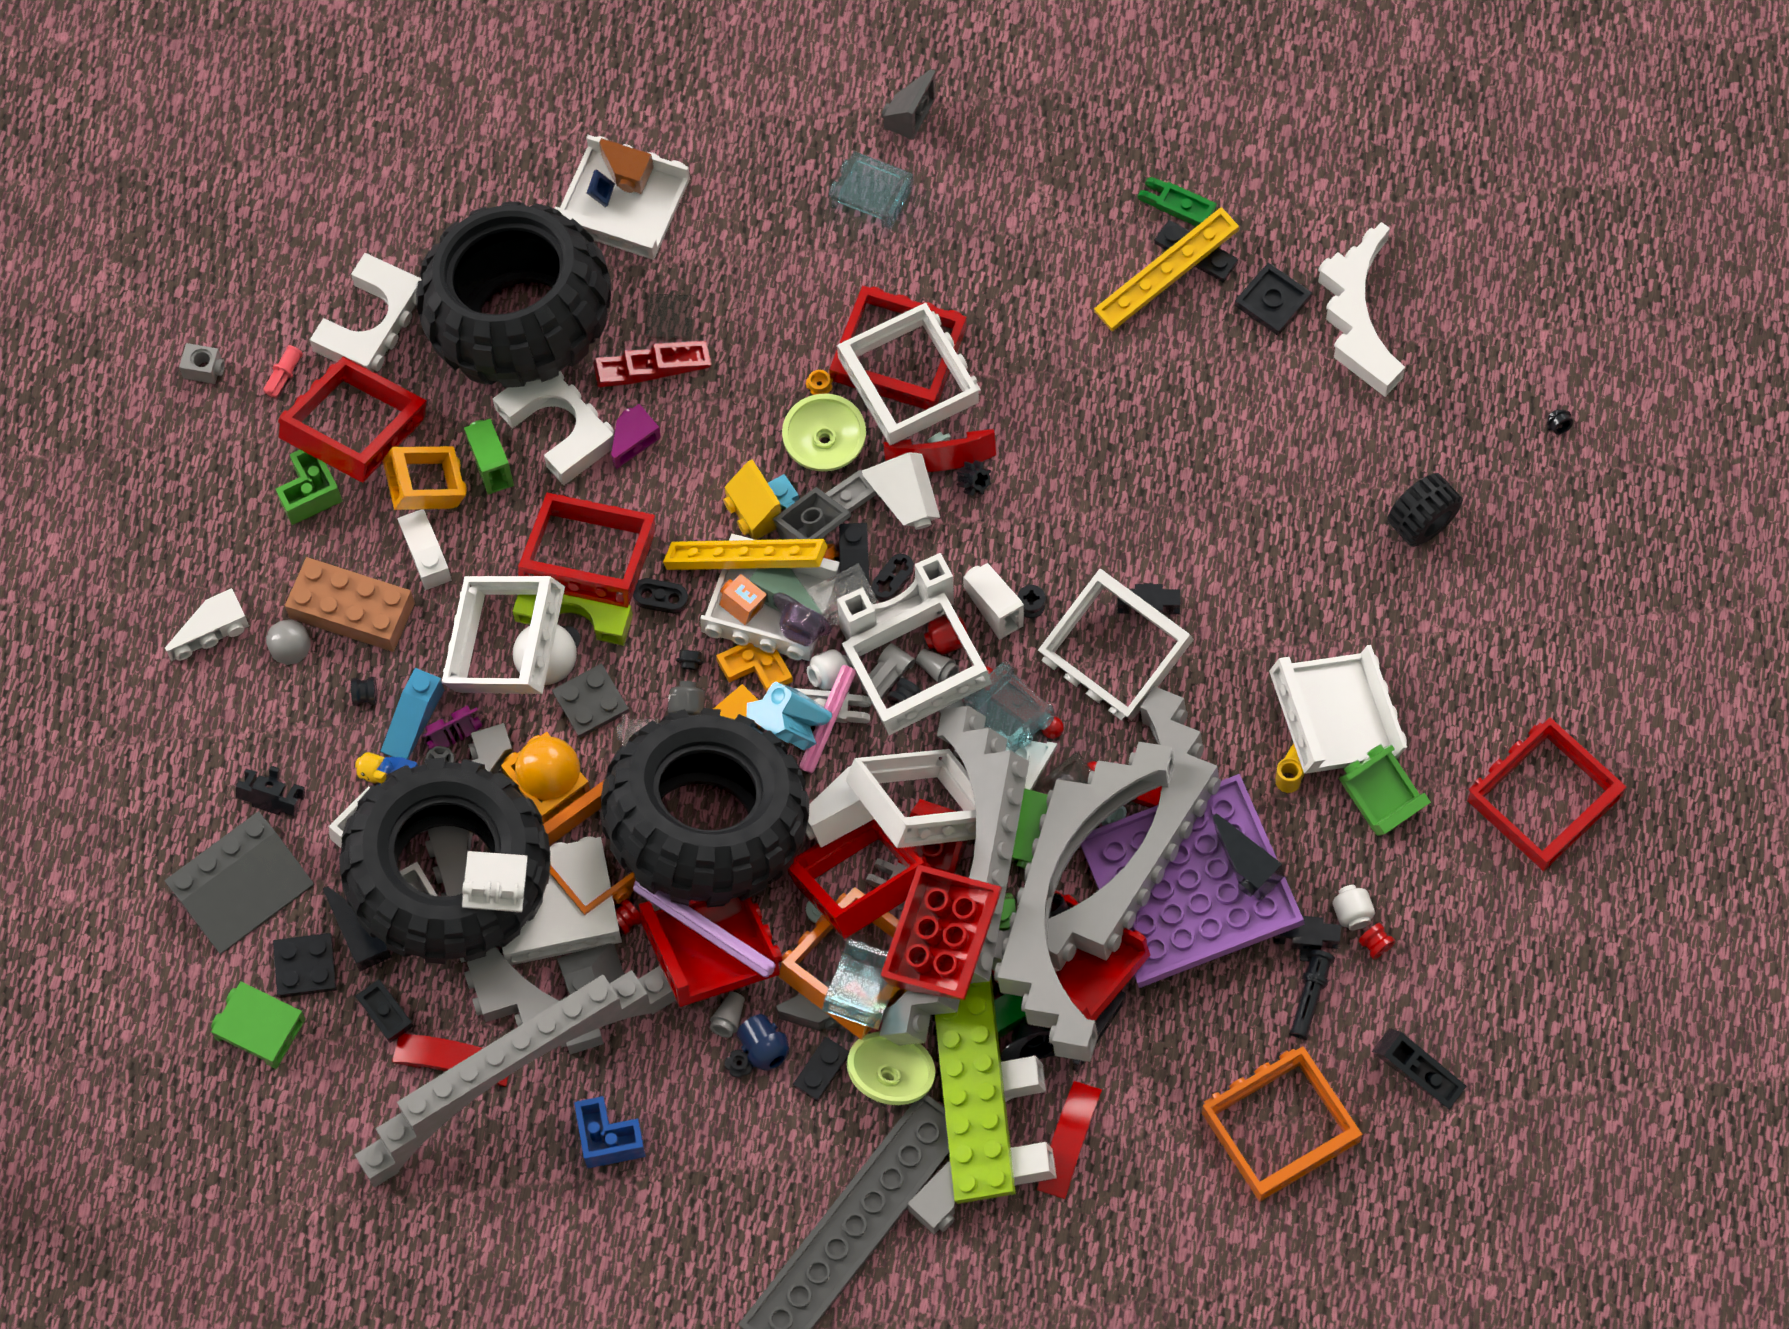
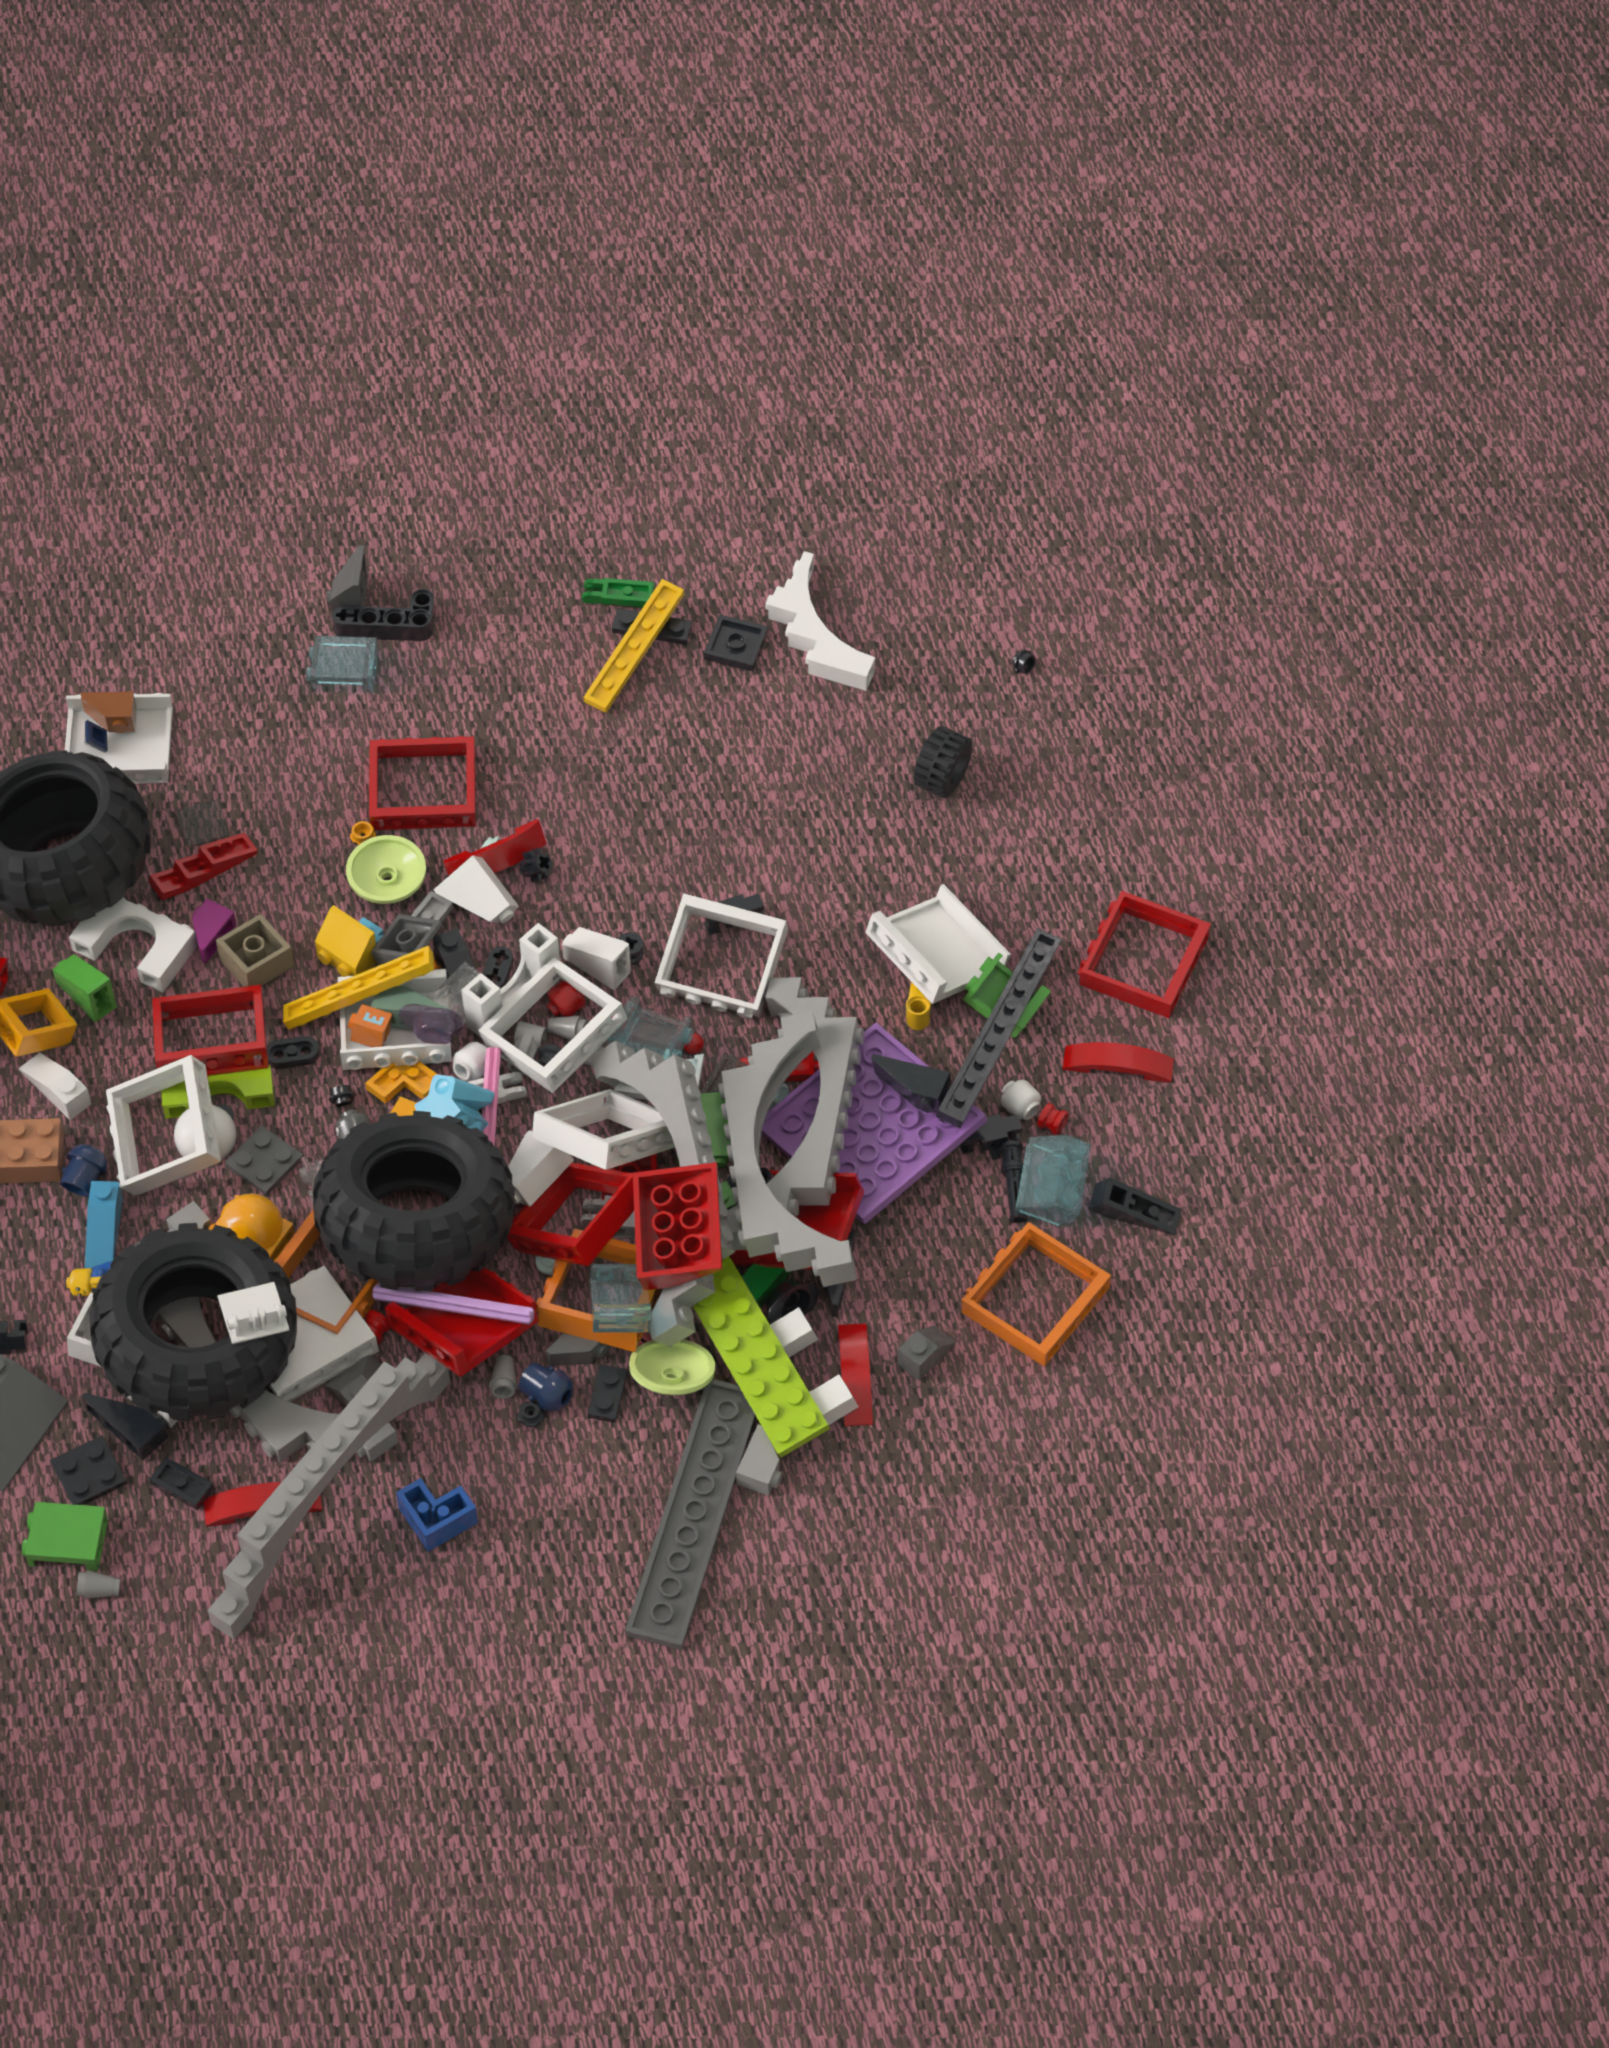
camera: 25 degrees left, 10 degrees down
(268, 1085) = (97, 1585): none -> light grey cone
(363, 691) = (48, 1220): black wheel -> none
(415, 649) = (83, 1167): none -> dark blue piece
(462, 717) = (150, 1215): magenta hinge -> none
(663, 478) = (255, 952): none -> dark tan brick
(892, 329) = (437, 745): white window -> none
(898, 144) = (388, 623): none -> black beam
(1147, 1141) = (923, 1350): none -> dark grey slope
(1348, 1007) = (1053, 1178): none -> clear light blue slope
(1357, 827) = (998, 1028): none -> black plate
(1472, 900) = (1118, 1058): none -> red slope

